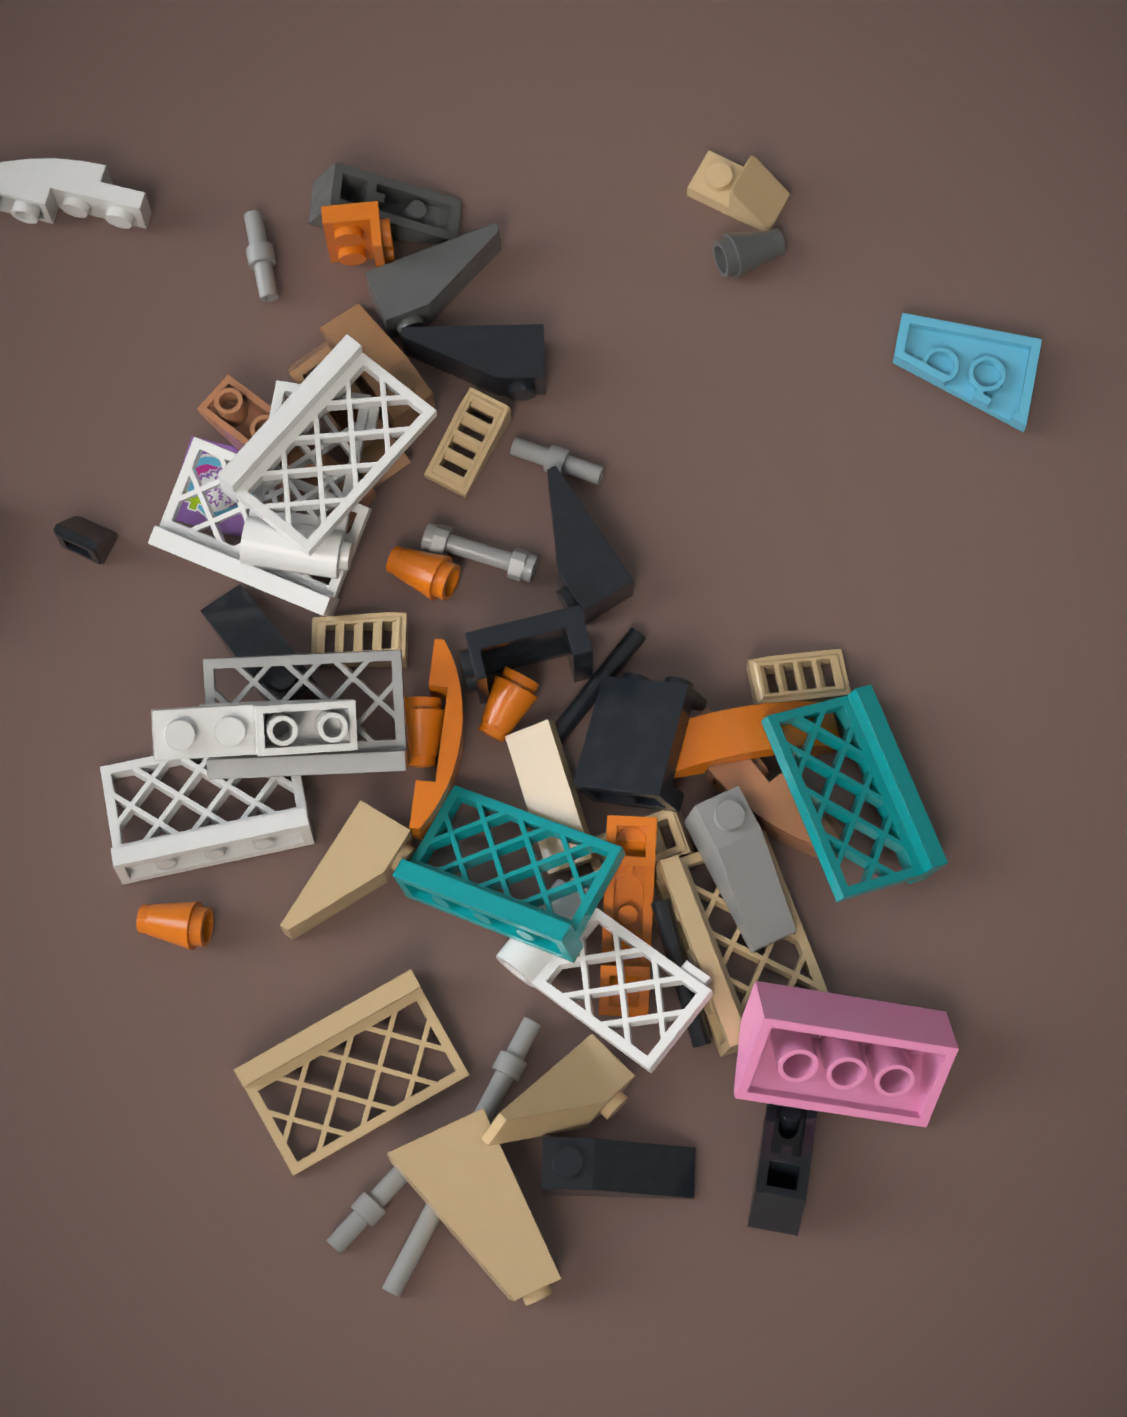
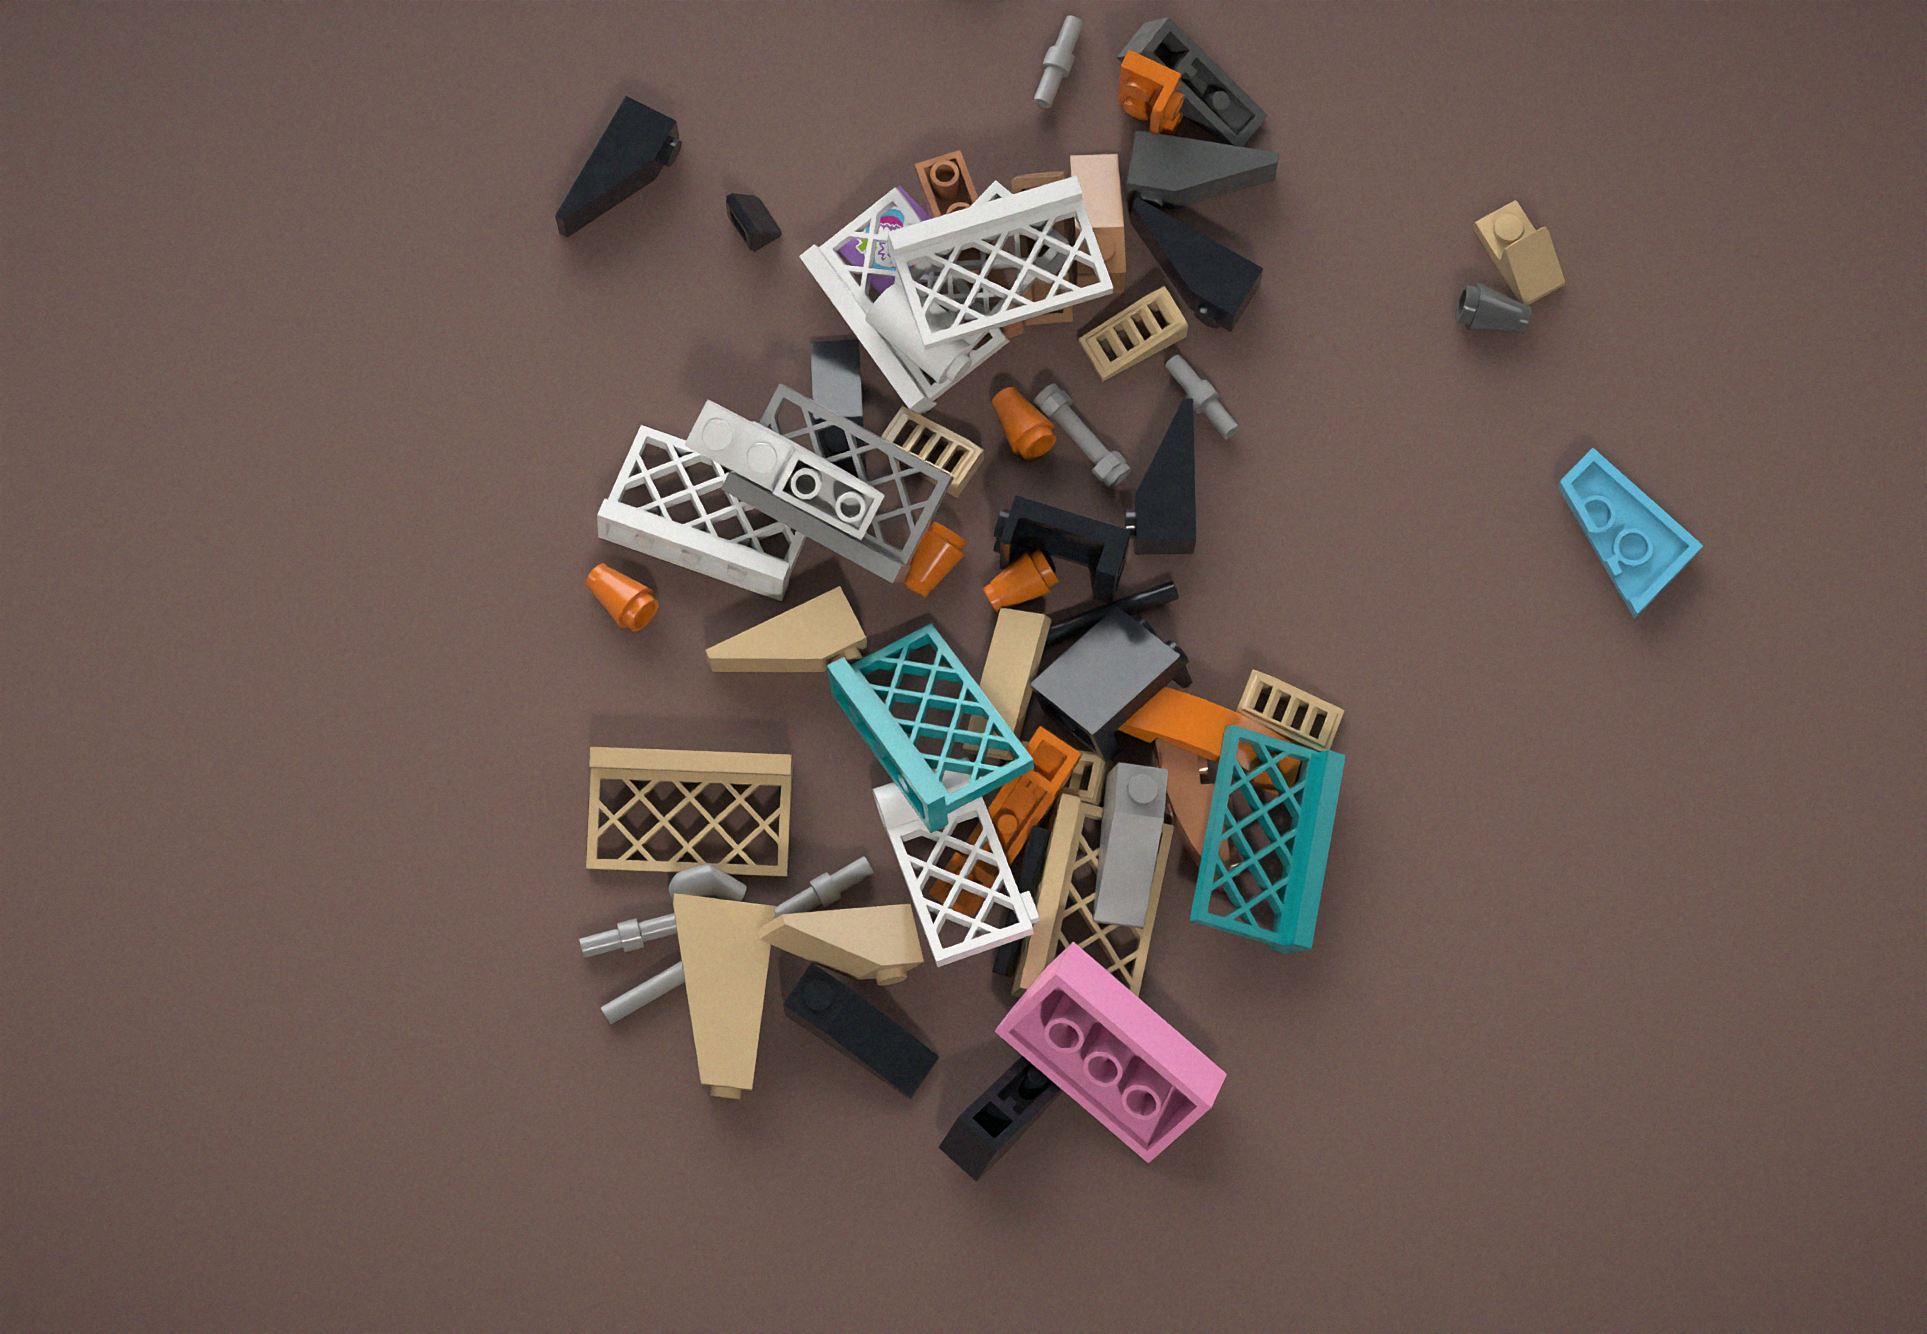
camera: 30 degrees right, 0 degrees up
(404, 1123) = (705, 882): none -> light grey arm
(431, 795) = (902, 619): orange slope -> none

